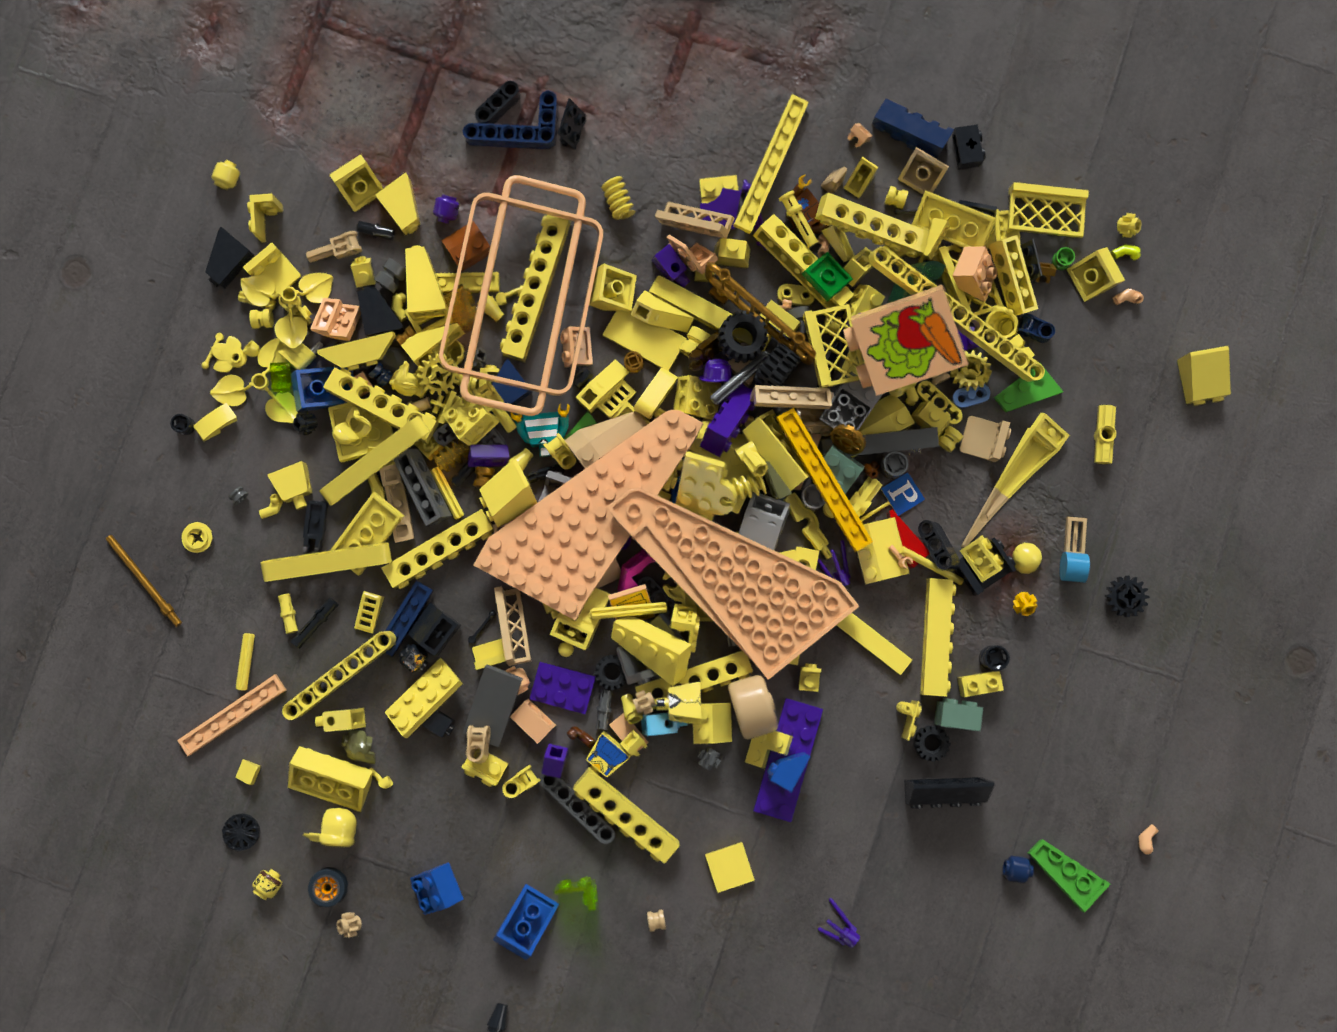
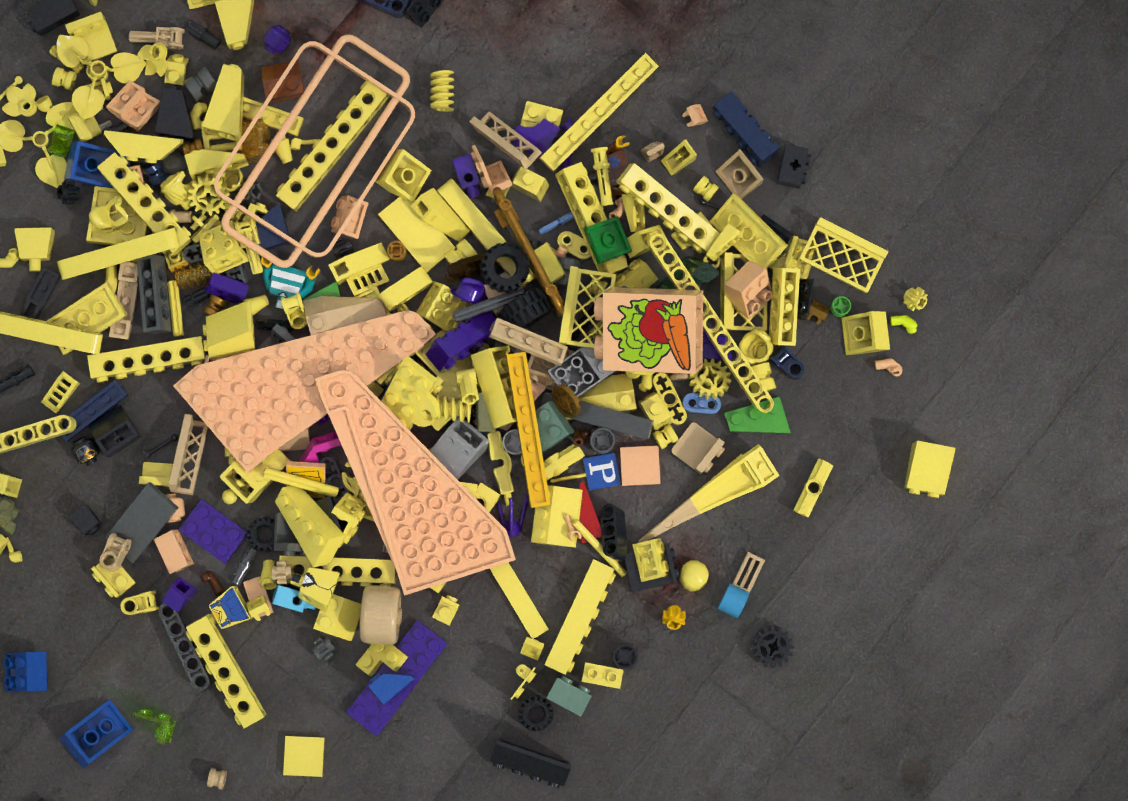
camera: 15 degrees right, 0 degrees up
(340, 270) = (155, 58): none -> light yellow plate
(423, 698) = (80, 491): light yellow plate -> none
(773, 277) = (561, 221): none -> medium blue piece
(904, 683) = (532, 648): none -> light yellow plate
(936, 475) = (640, 465): none -> light nougat tile

